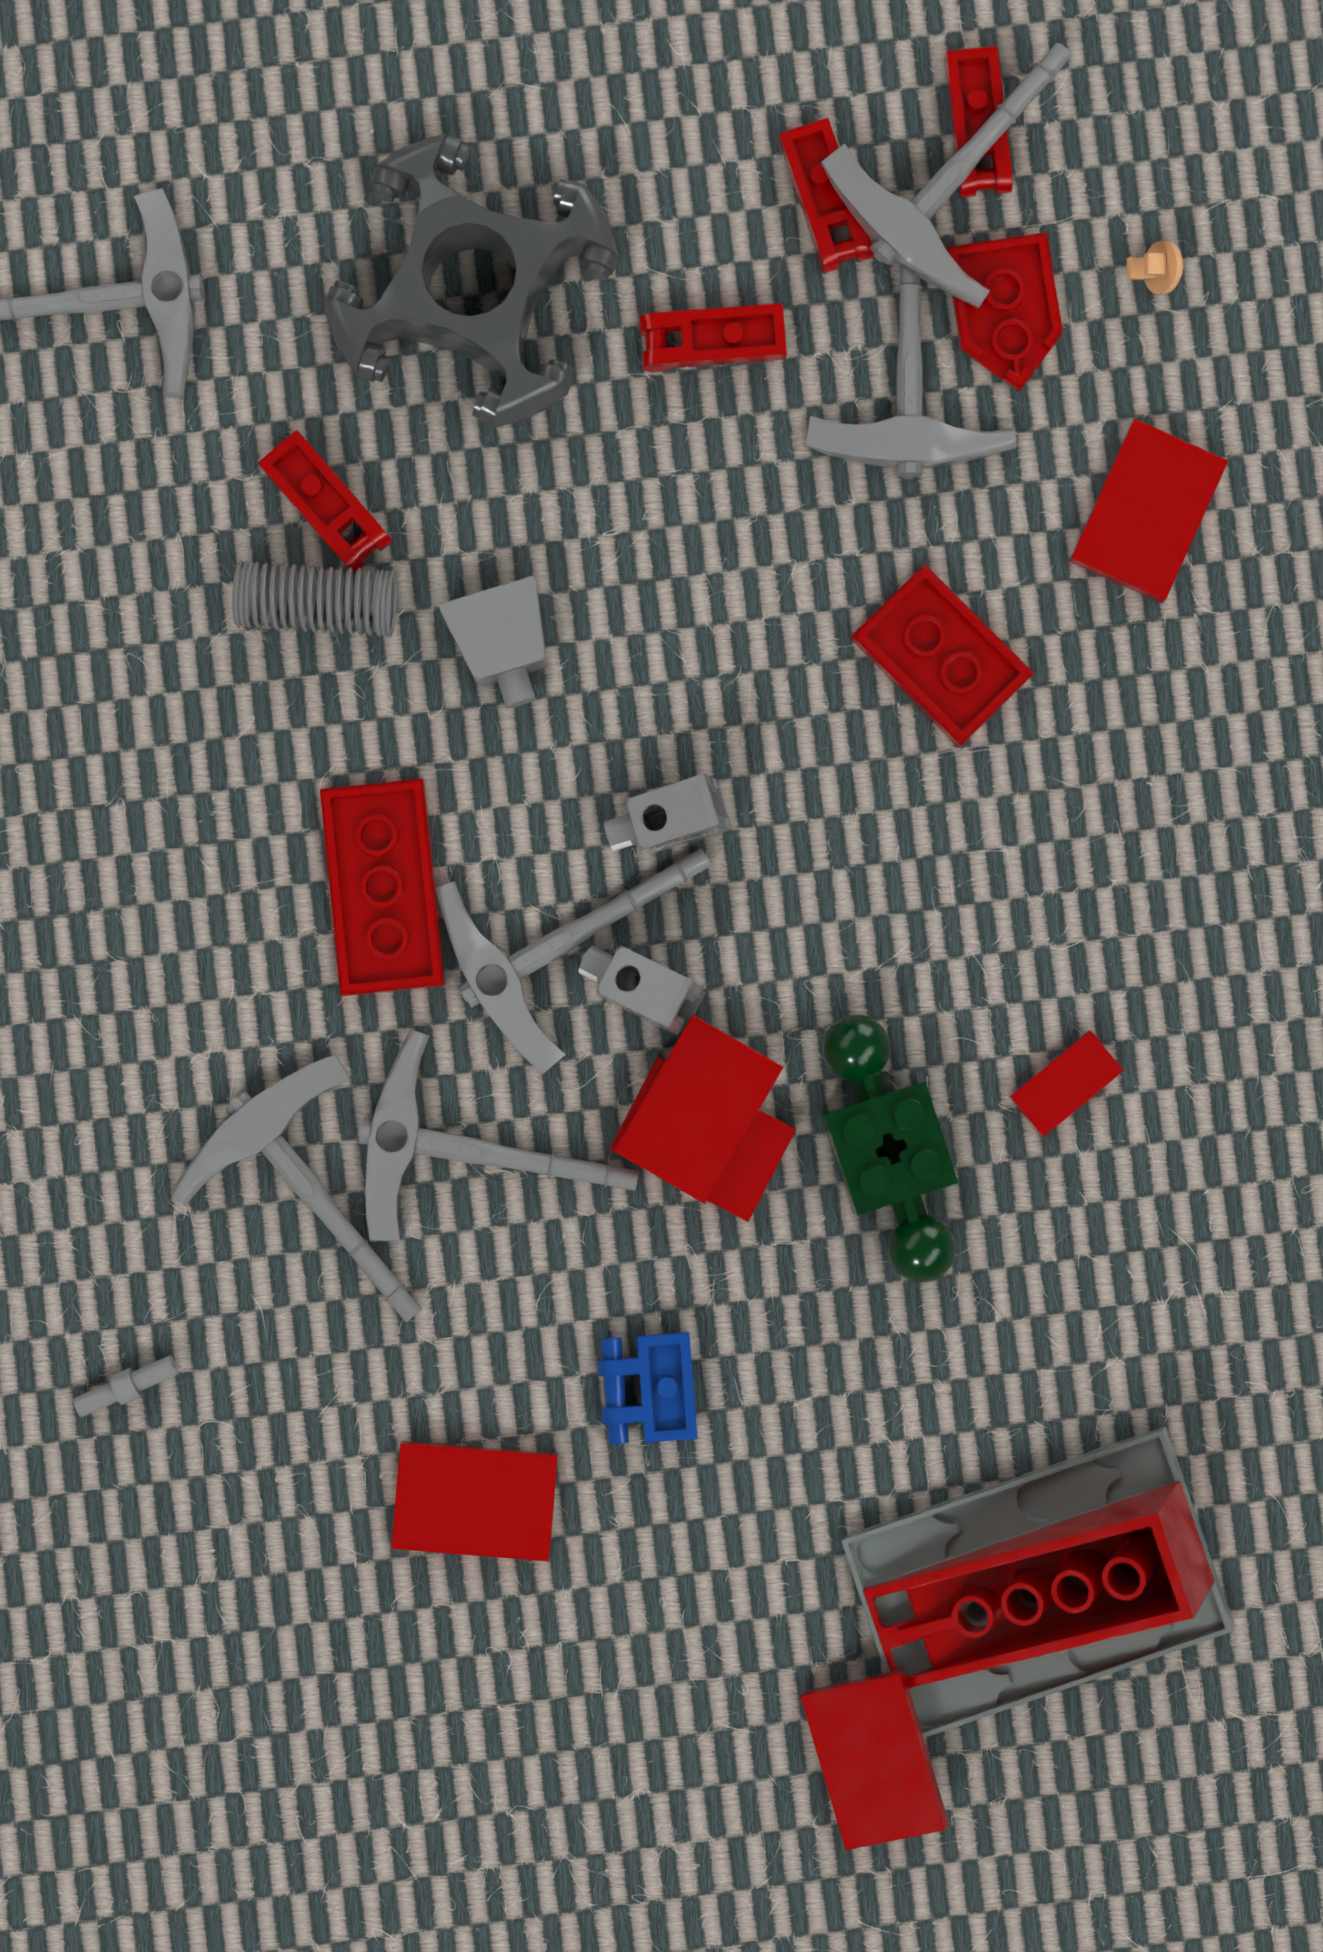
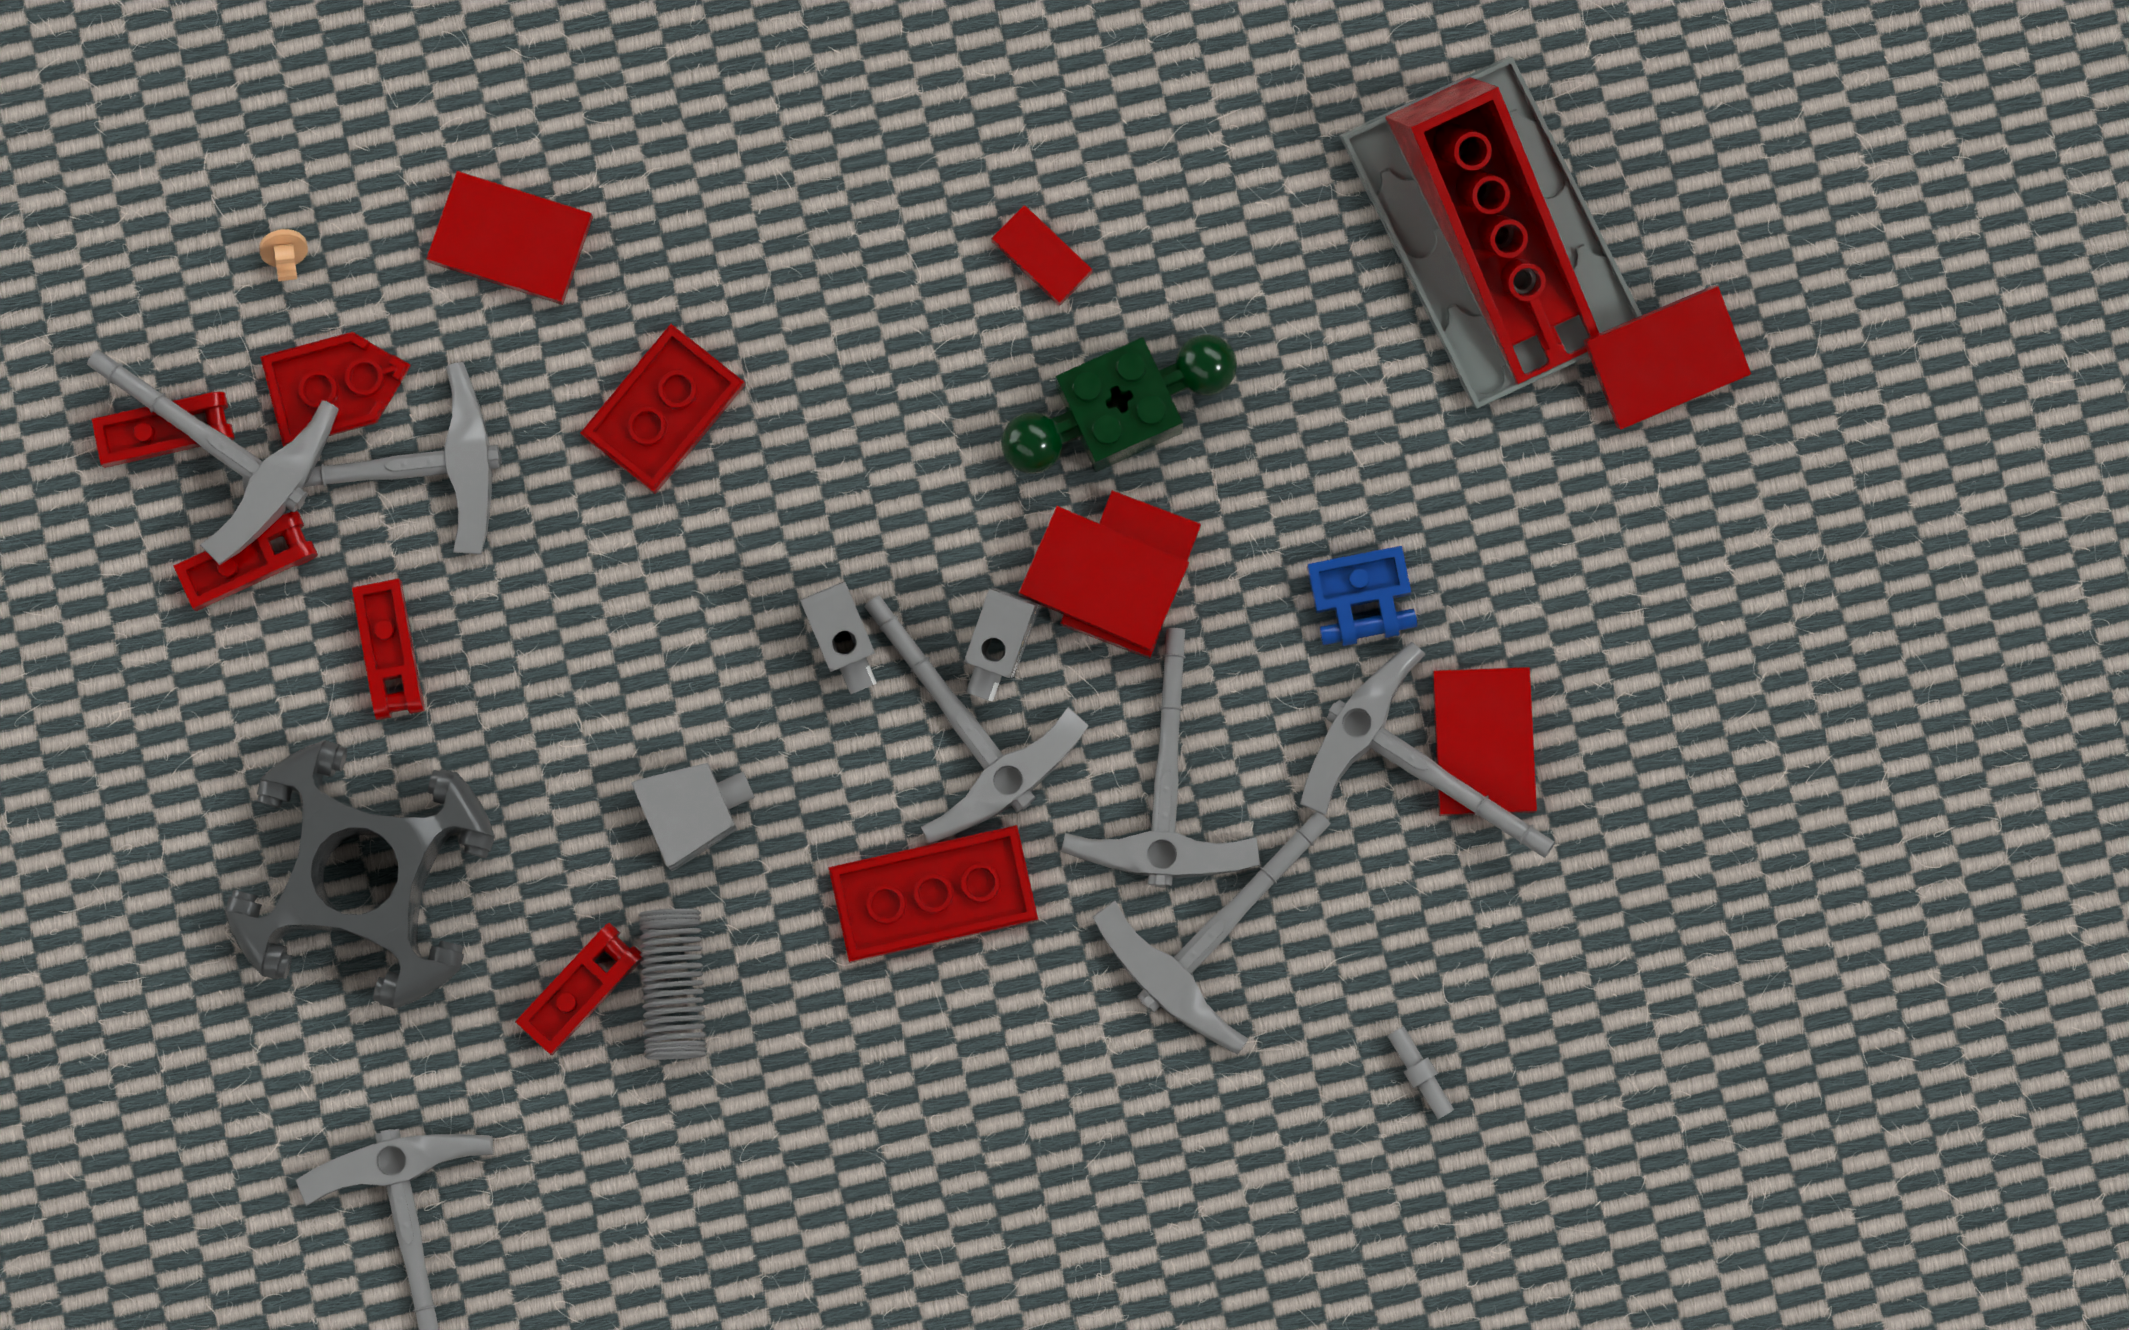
camera: 90 degrees left, 5 degrees down
(505, 1368) = (1361, 727): none -> light grey piece

